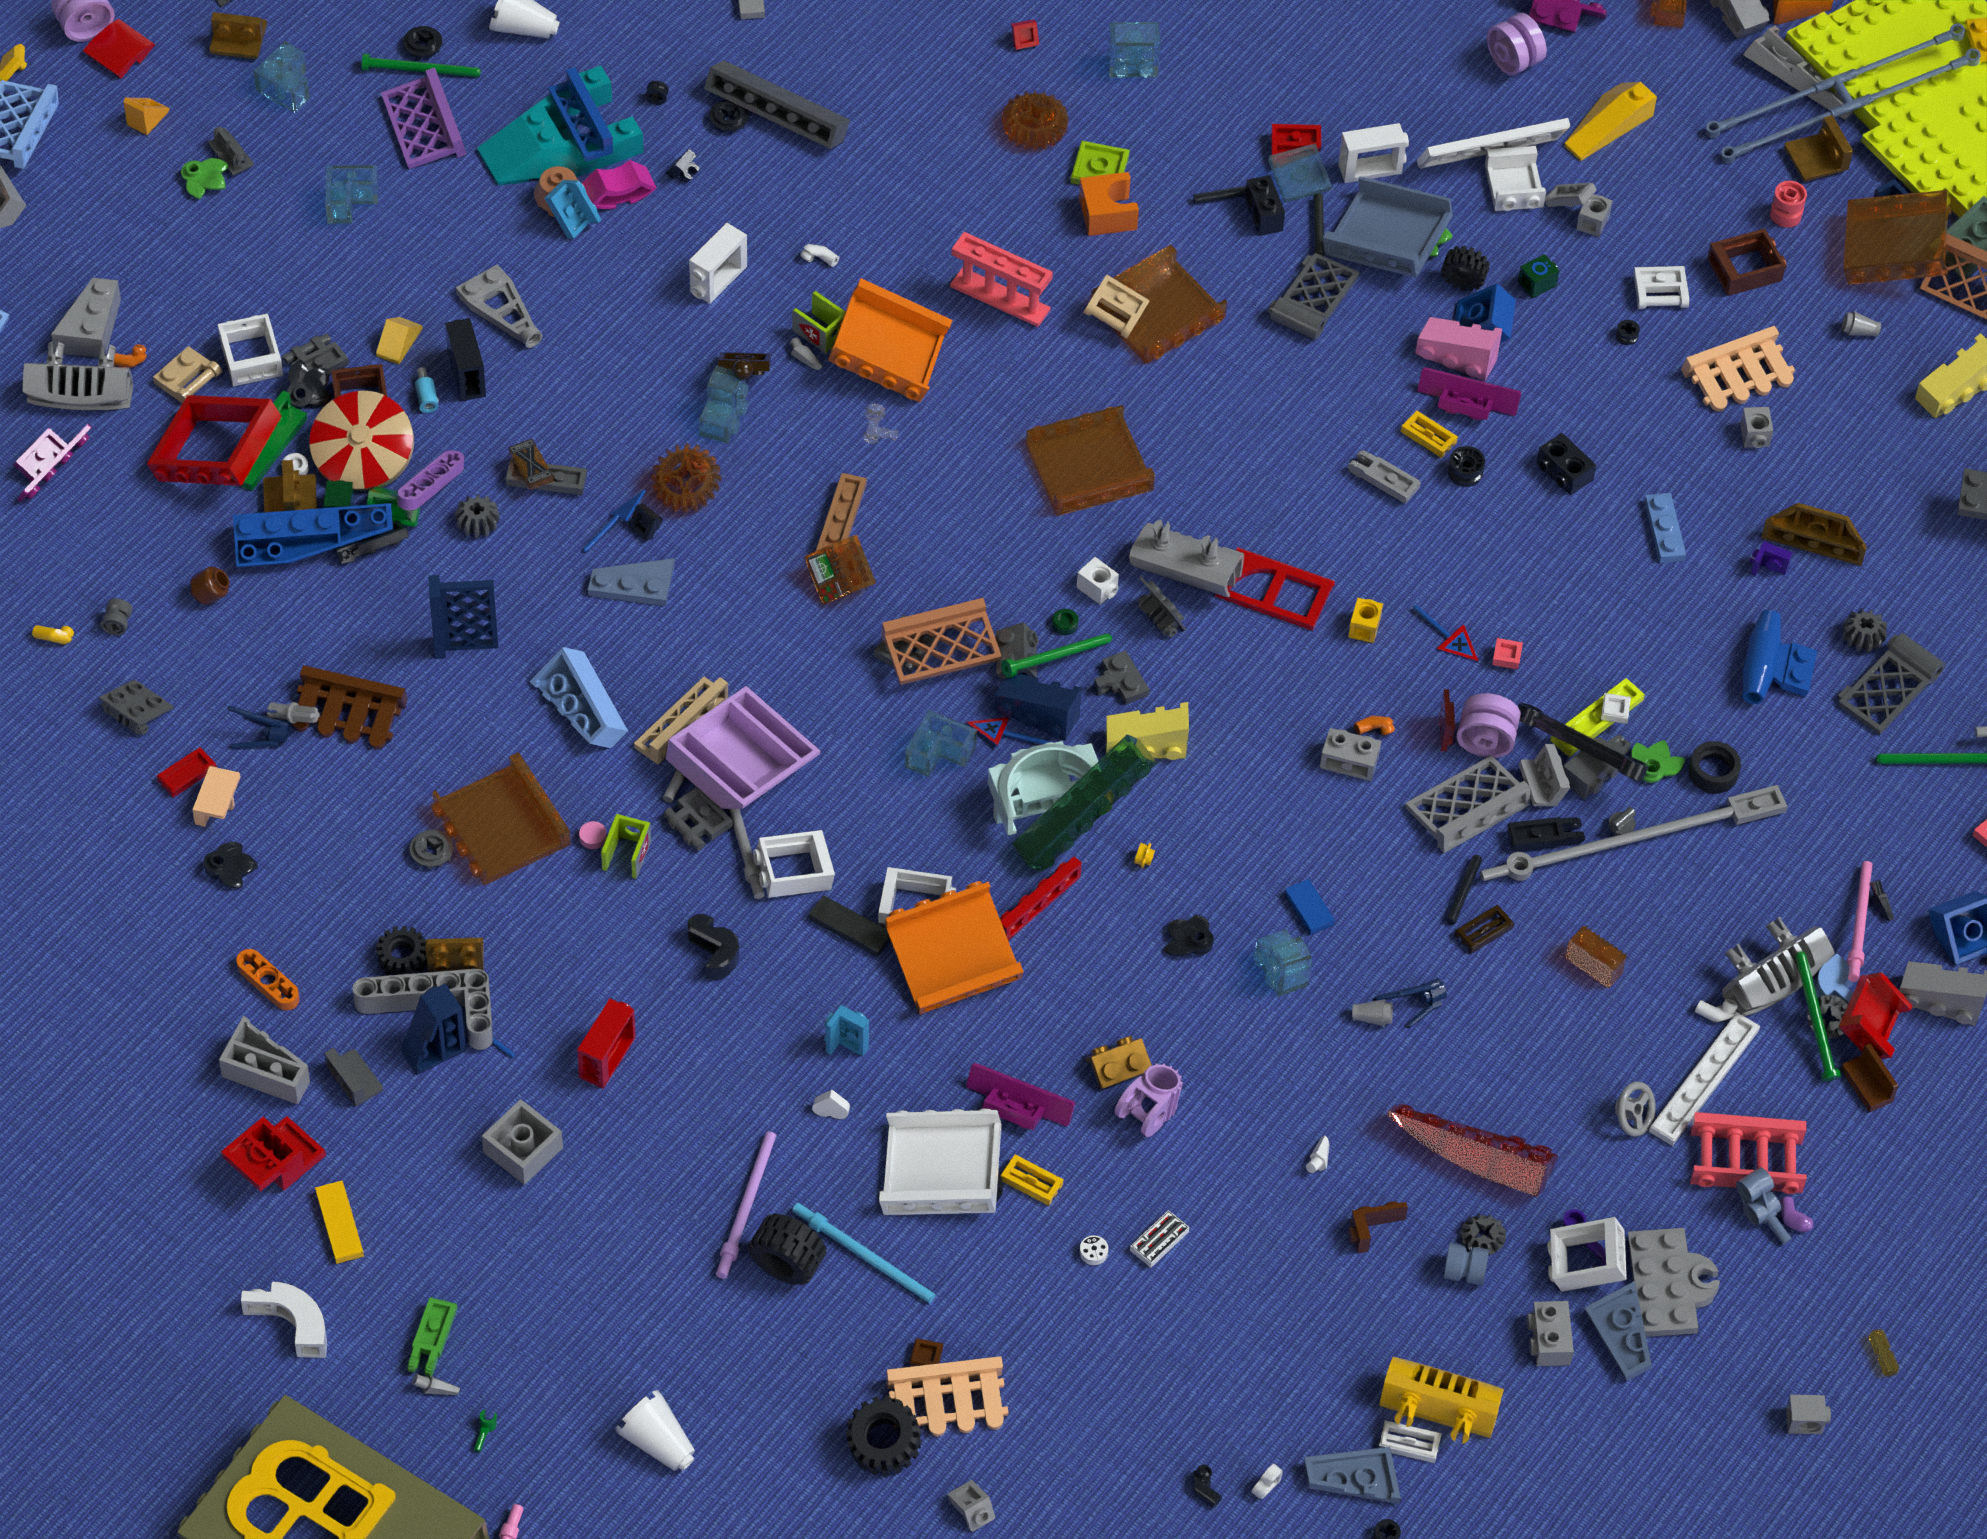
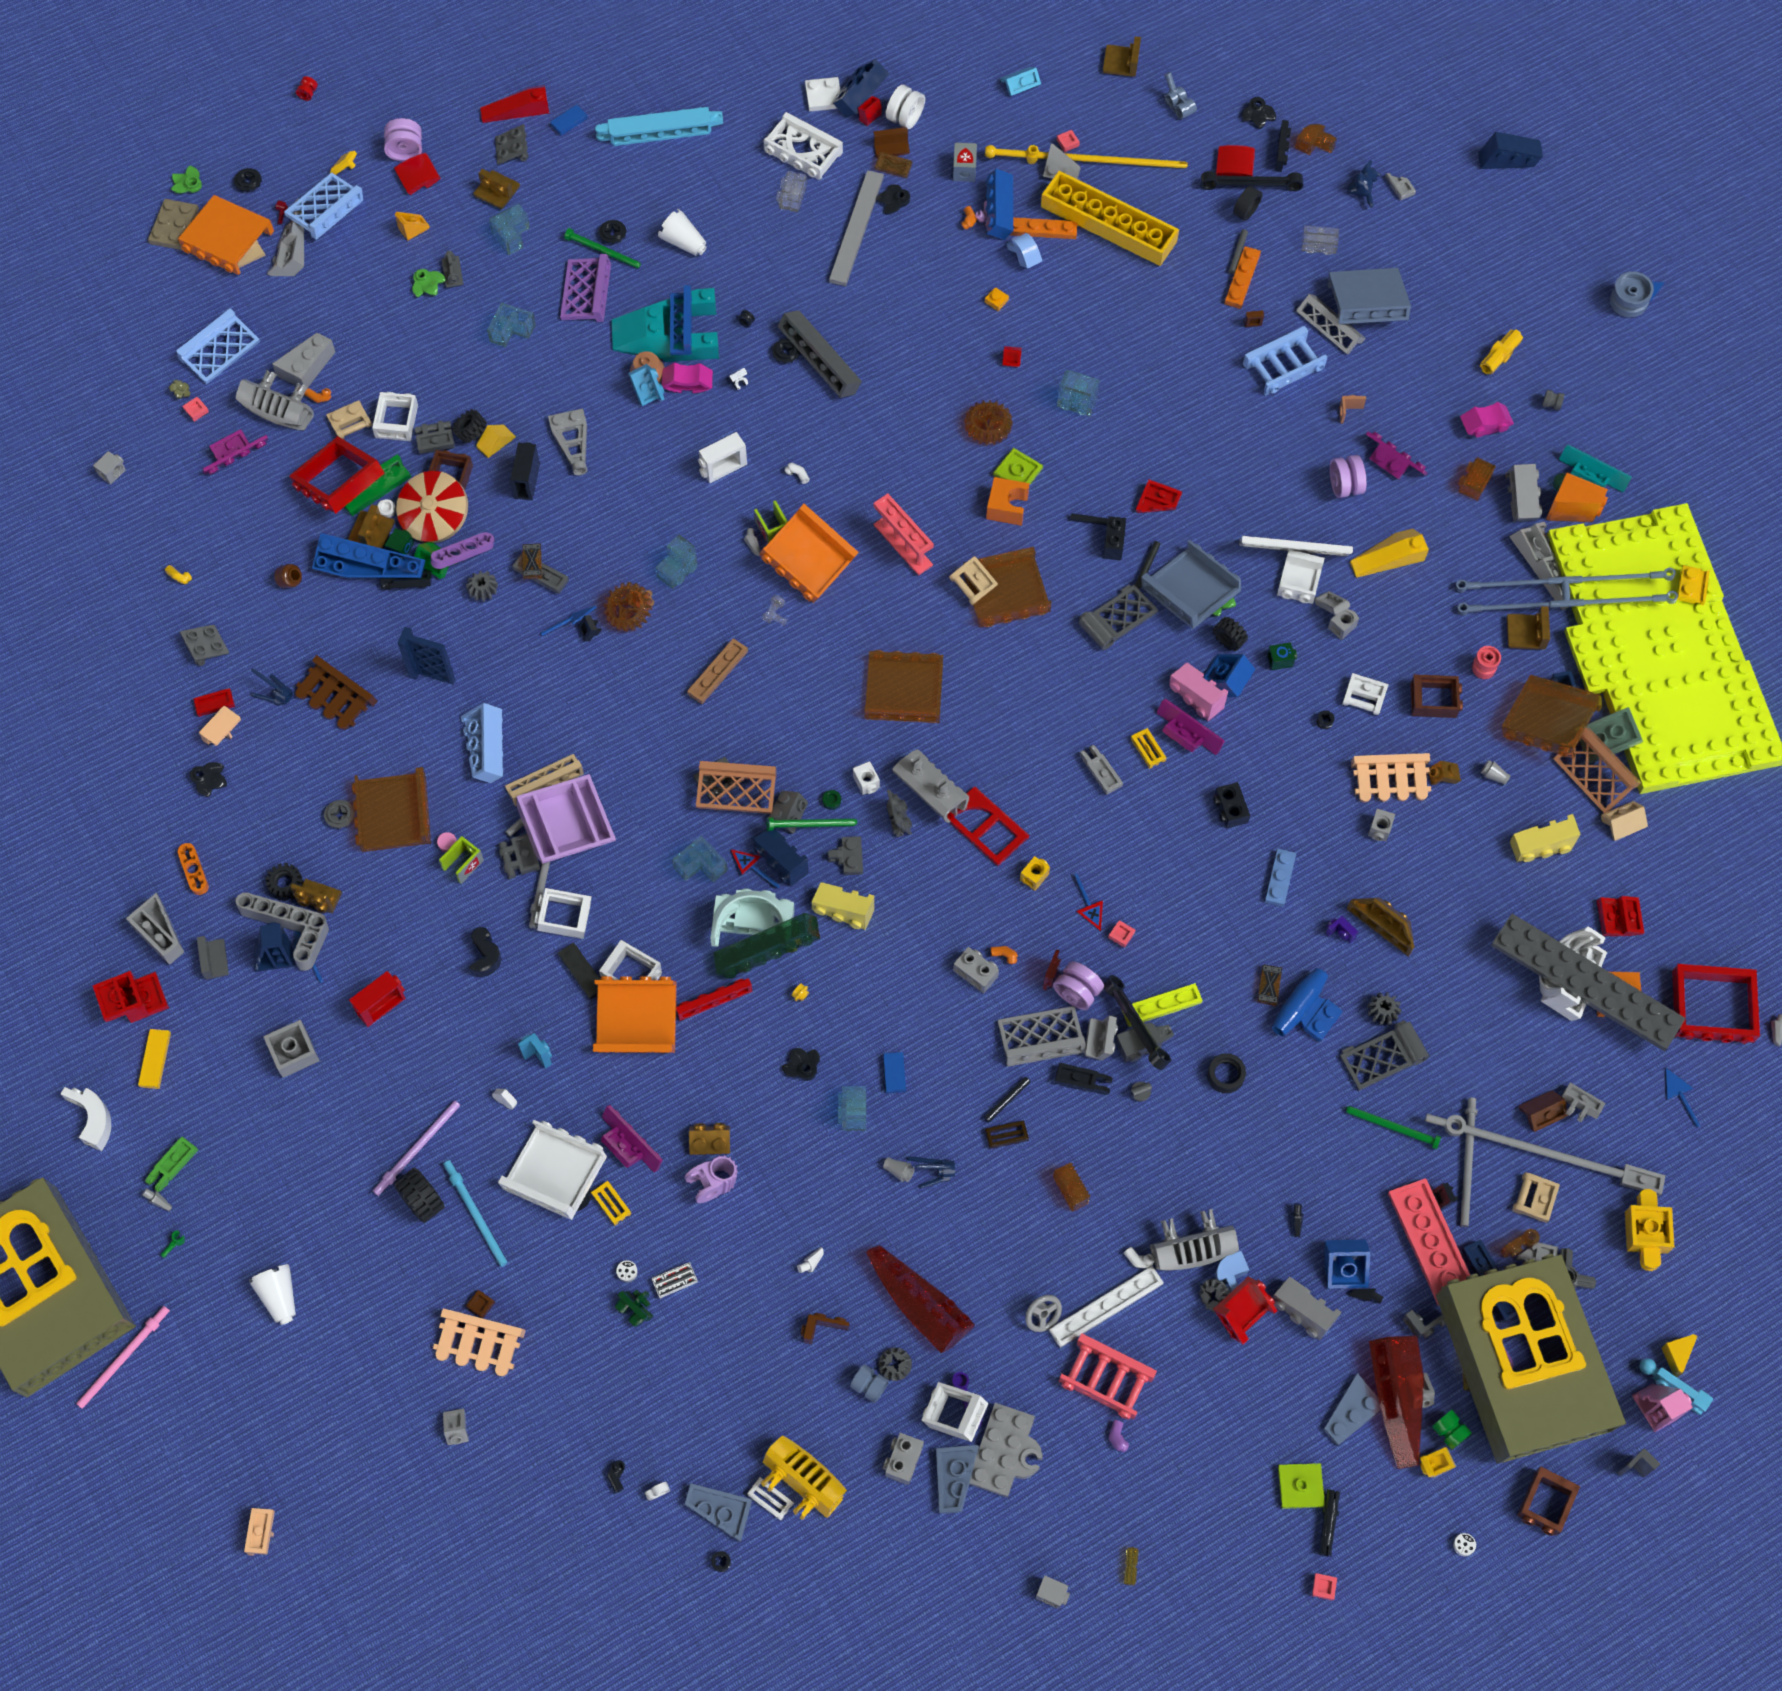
camera: 25 degrees right, 10 degrees up
(115, 620) = (221, 577): dark grey wheel -> none
(293, 712) = (295, 685): light grey axle -> none
(310, 382) = (421, 453): black plate -> none
(359, 329) = (469, 426): none -> black tyre
(426, 392) = (493, 484): medium azure piece -> none
(634, 582) = (562, 669): sand blue wing -> none
(745, 363) = (705, 534): dark brown plate -> none
(840, 570) = (695, 710): clear orange slope -> none
(879, 1413) = (402, 1353): black tyre -> none
(1138, 1290) = (628, 1301): none -> dark green hips
(1300, 173) = (1151, 522): clear light blue plate -> none
(1372, 140) = (1207, 525): white window -> none
(1470, 458) = (1158, 775): black wheel -> none
(1615, 708) = (1175, 1004): white tile -> none
(1658, 759) = (1189, 1051): bright green plate -> none
(1714, 652) = (1269, 985): none -> tile
(1741, 807) = (1230, 1111): light grey bar -> none
(1760, 1203) = (1097, 1420): sand blue beam -> none
(1800, 343) = (1444, 772): none -> pearl gold bracket
(1830, 1072) = (1202, 1294): green bar -> none
(1855, 955) = (1252, 1259): bright pink bar -> none
(1870, 1079) = (1221, 1354): reddish brown panel -> none

